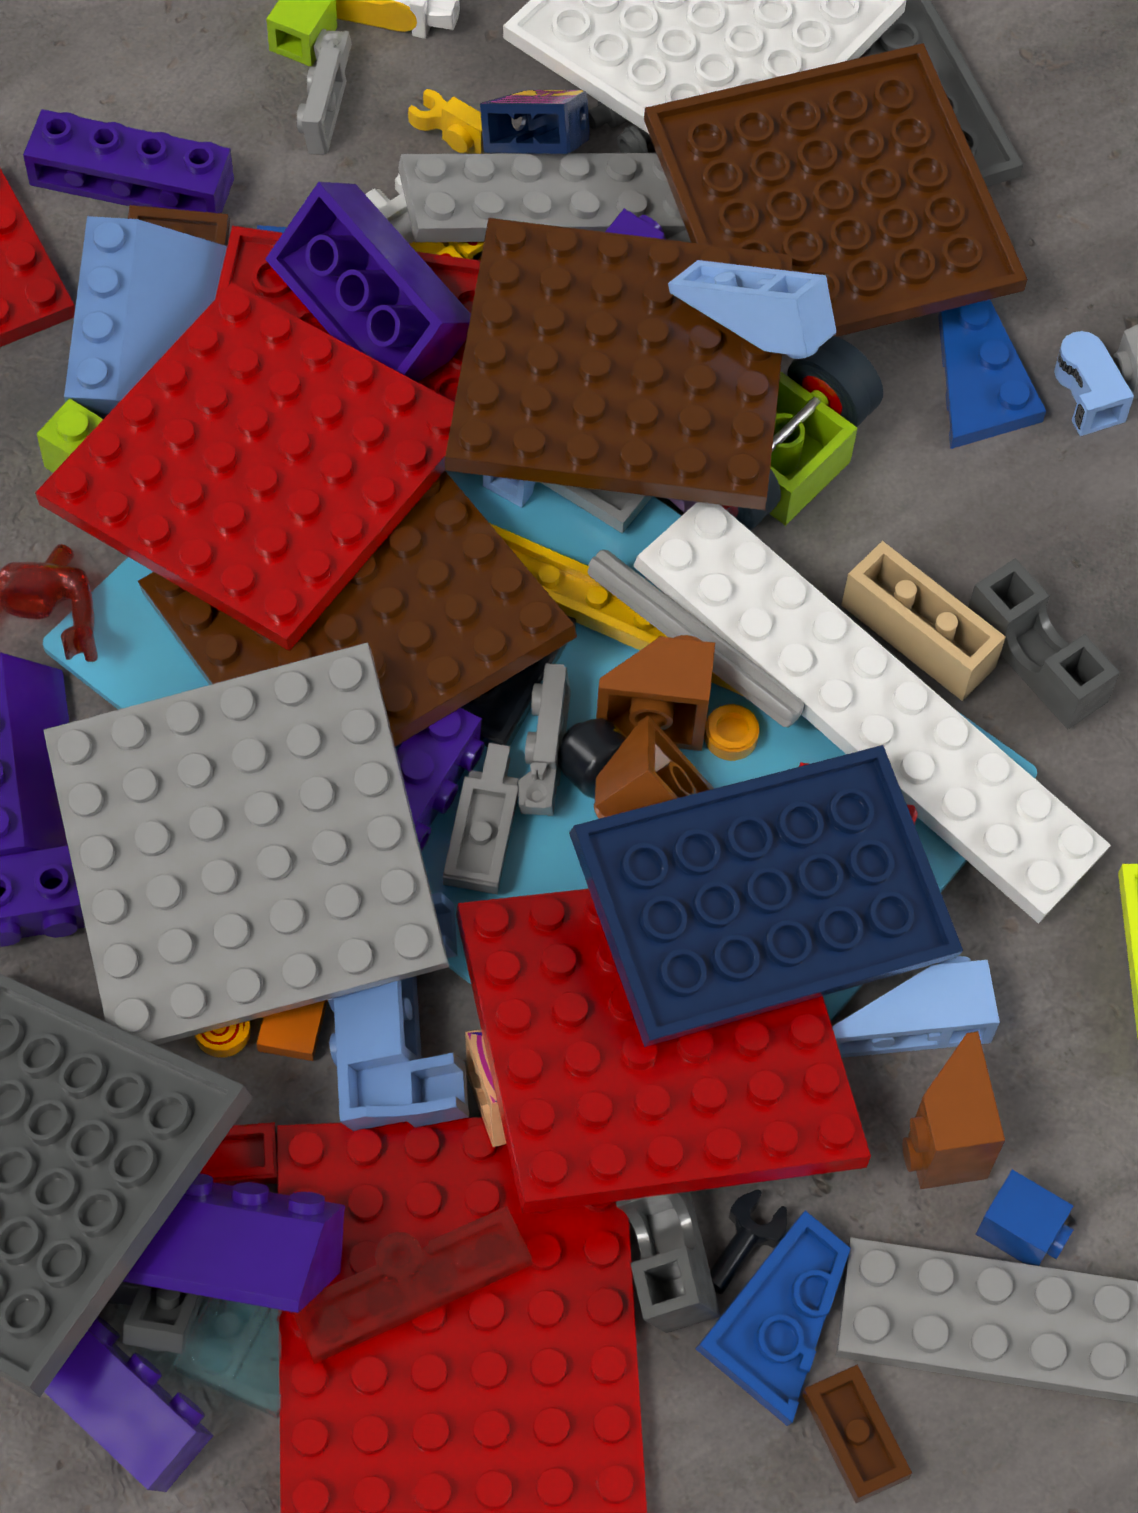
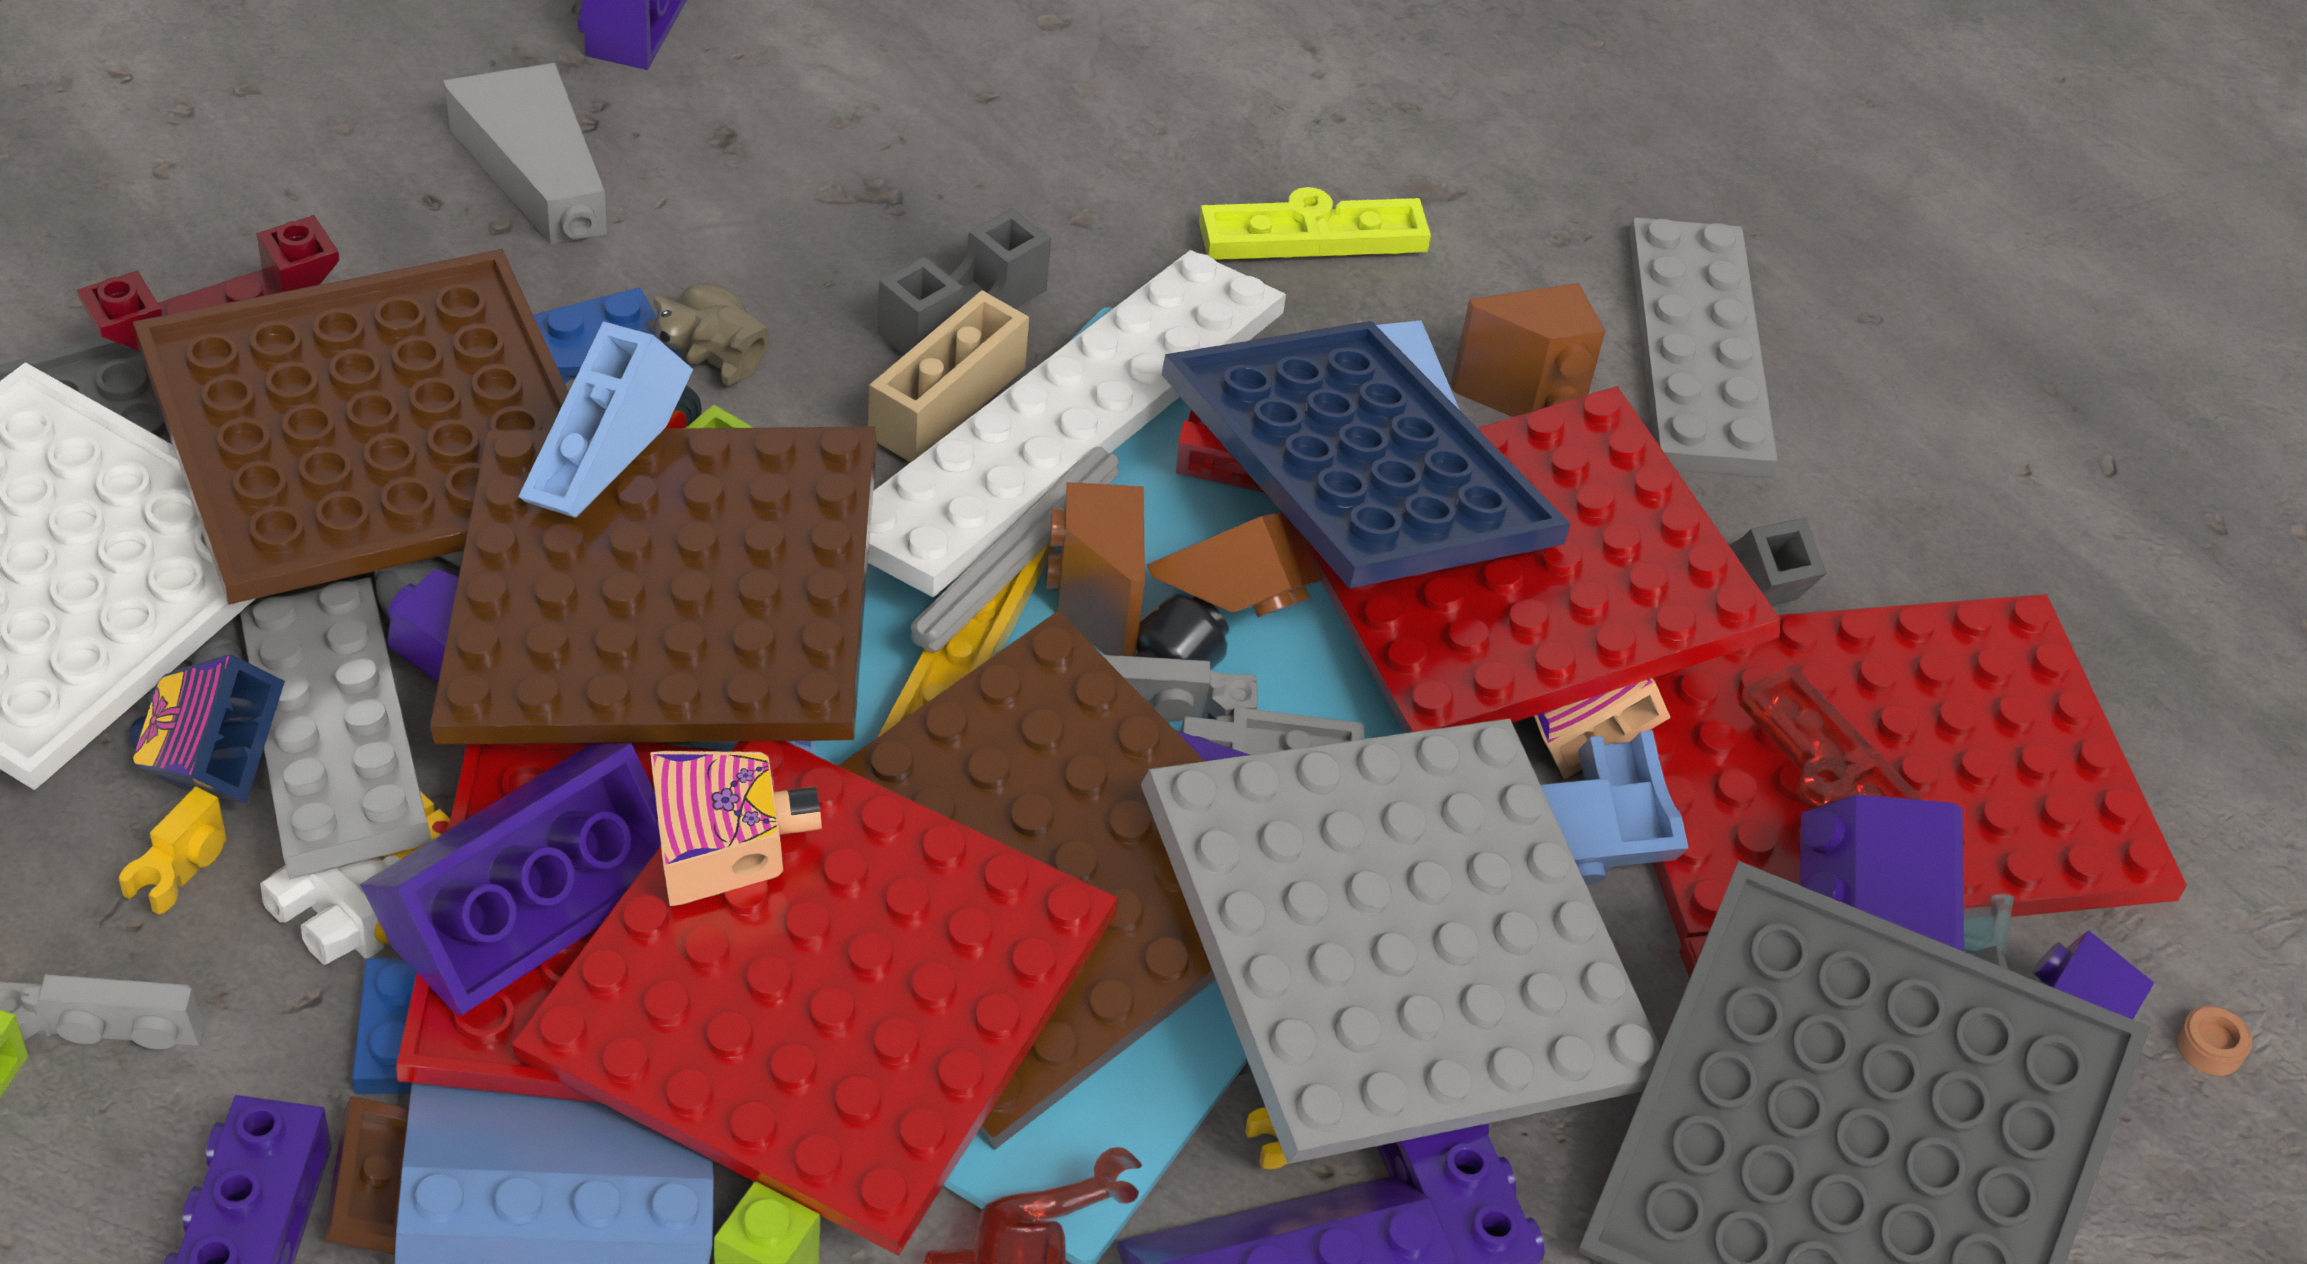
camera: 100 degrees left, 15 degrees down
(367, 374) = (723, 820): none -> torso
(776, 1319) = (1744, 502): blue wing -> none
(856, 1433) = (1852, 448): reddish brown plate -> none
(985, 464) = (712, 327): none -> dark tan animal
(987, 126) = (290, 256): none -> dark red slope
(1026, 1221) = (1621, 315): blue brick -> none
(1094, 382) = (599, 248): light blue leg -> none

